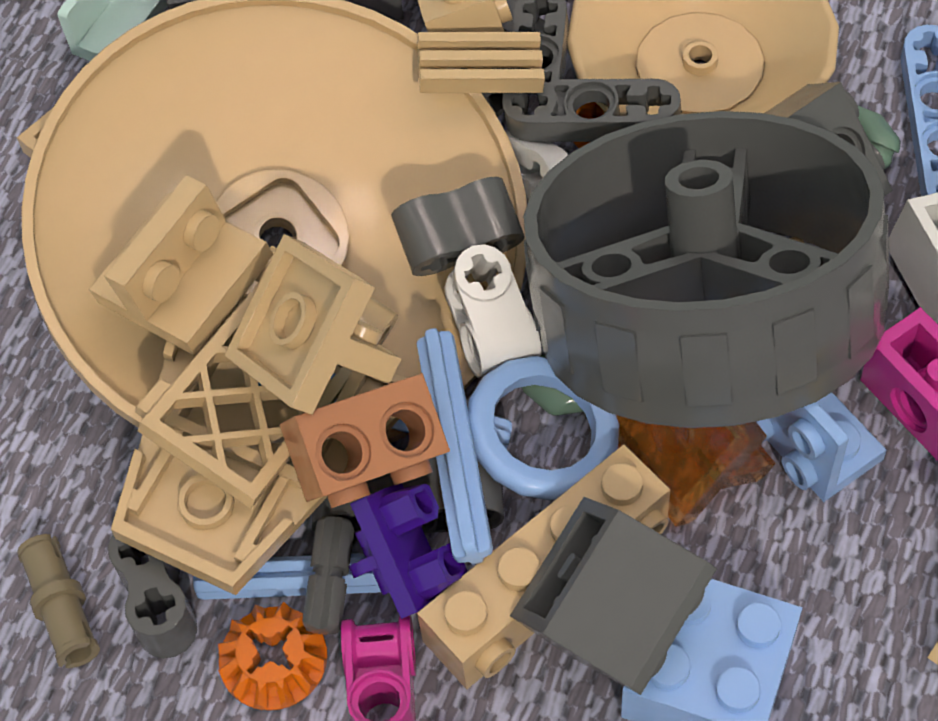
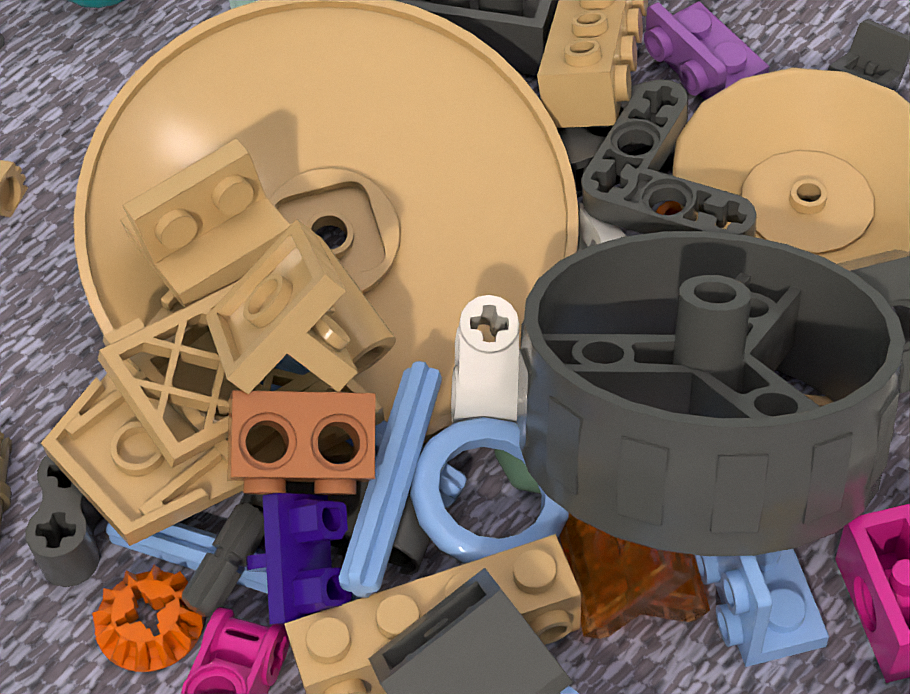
camera: 20 degrees right, 5 degrees down
(443, 225) = (476, 266): dark grey axle -> none
(479, 54) = (578, 121): tan tile -> none

